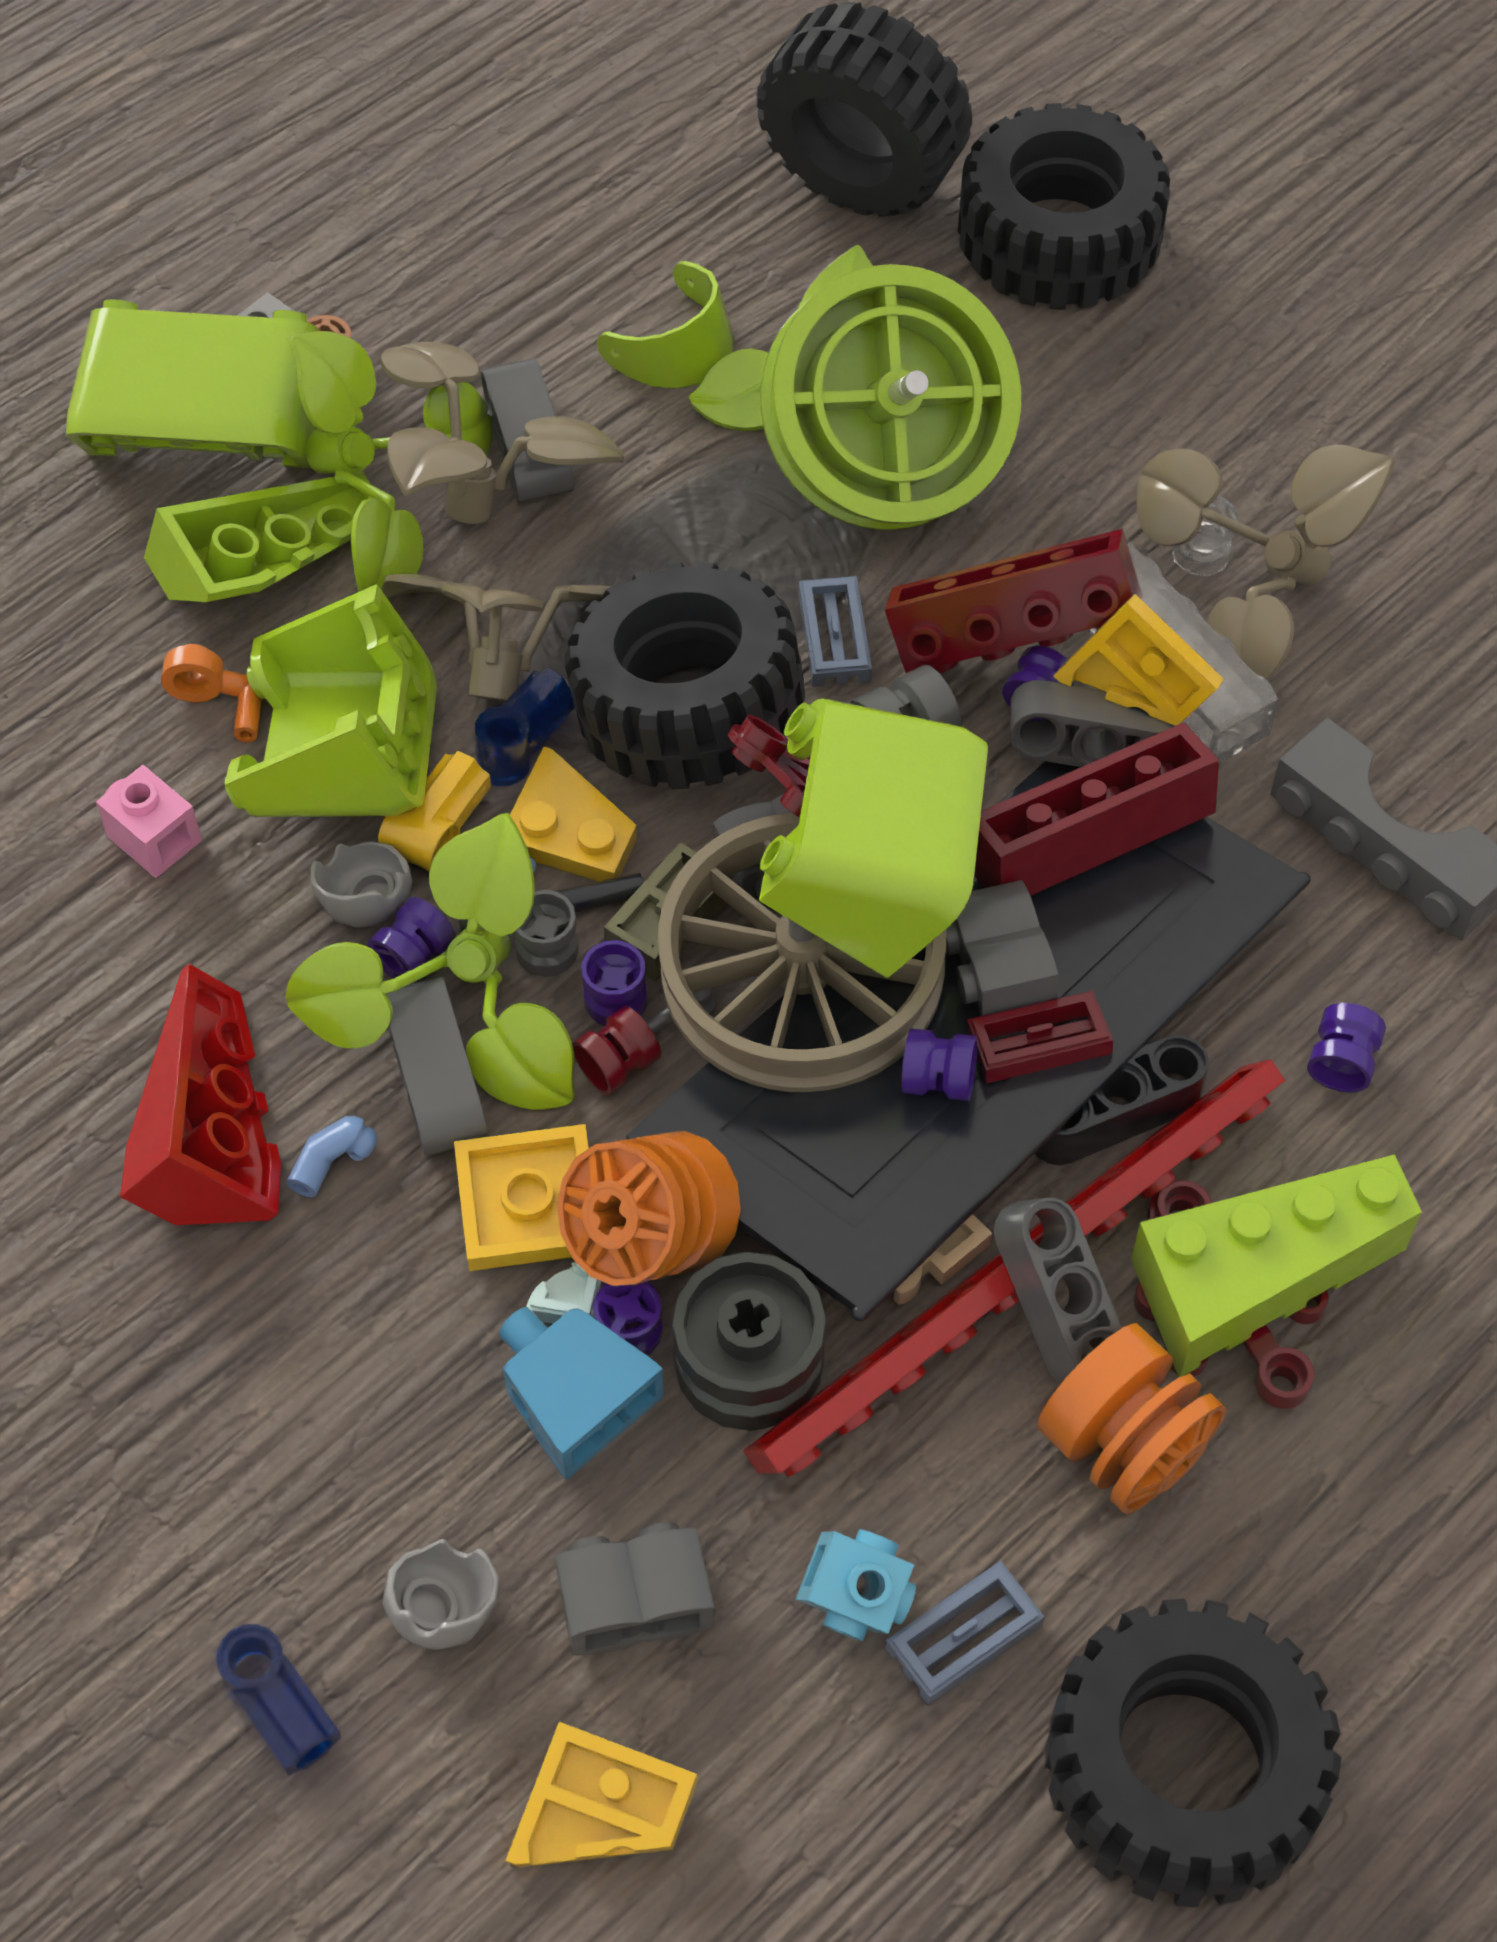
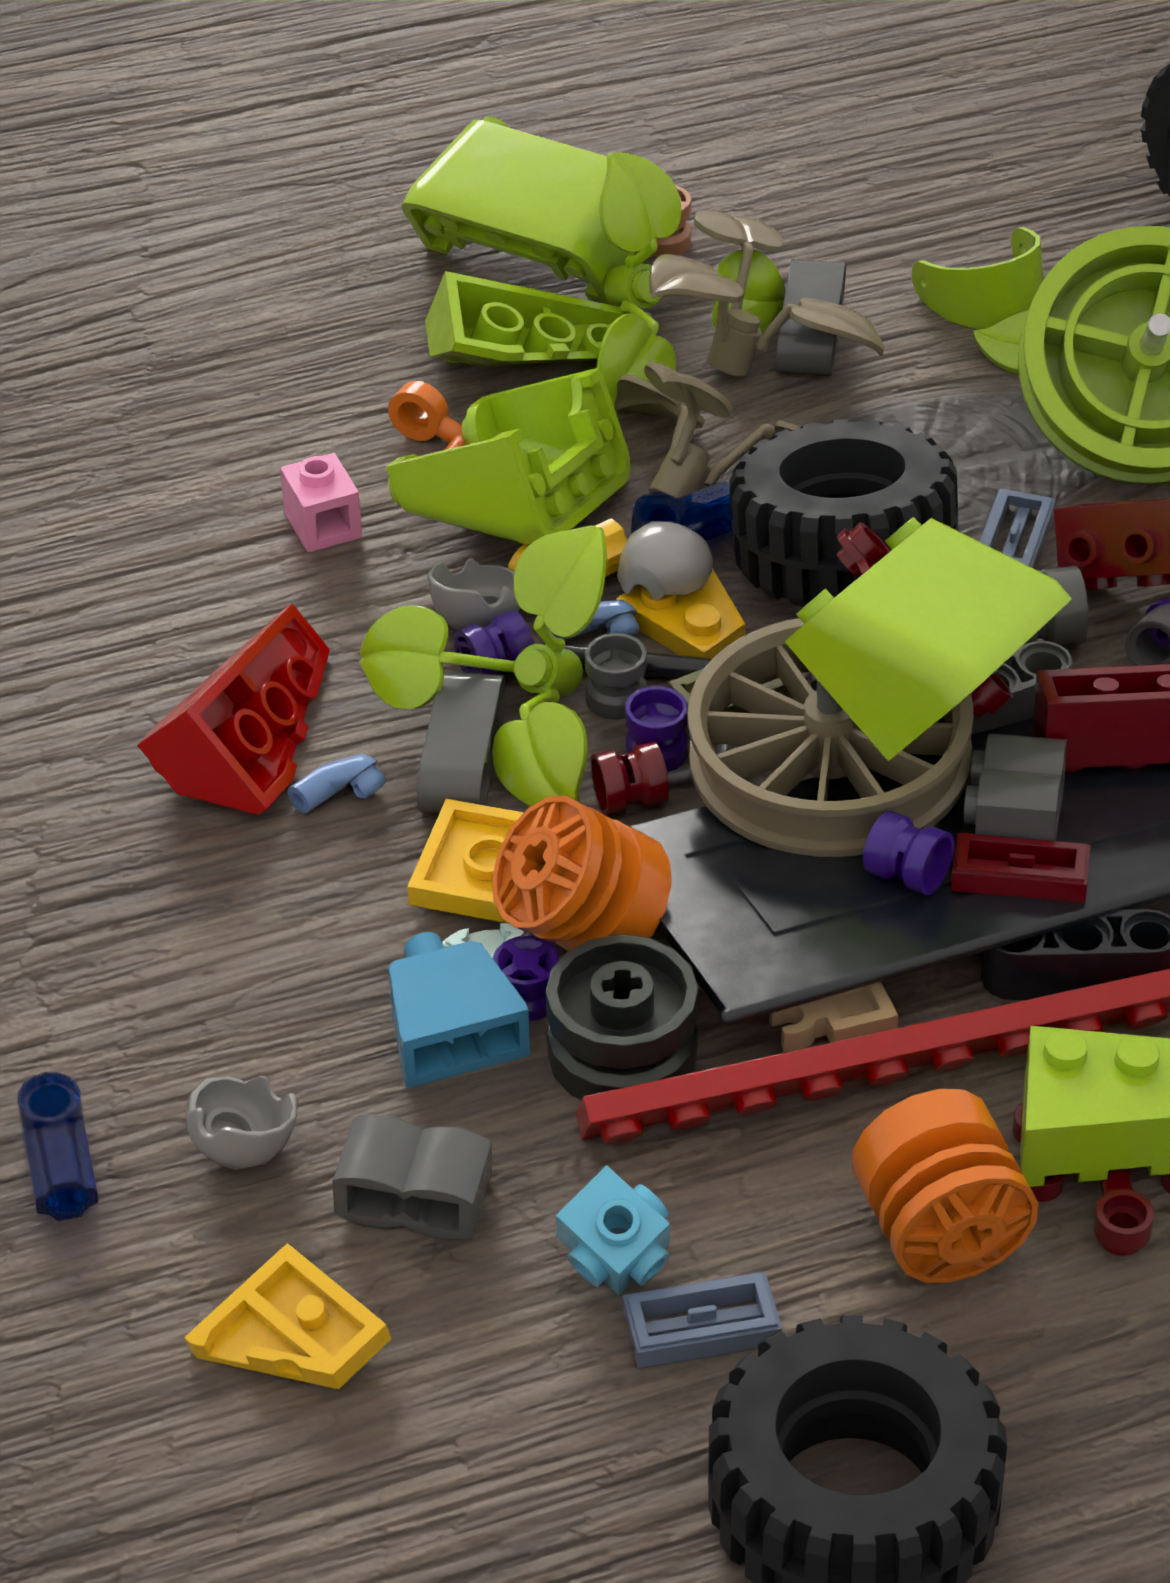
camera: 25 degrees right, 15 degrees down
(535, 784) = (665, 560): none -> light grey hair
(1037, 1271) = (927, 1032): dark grey beam -> none

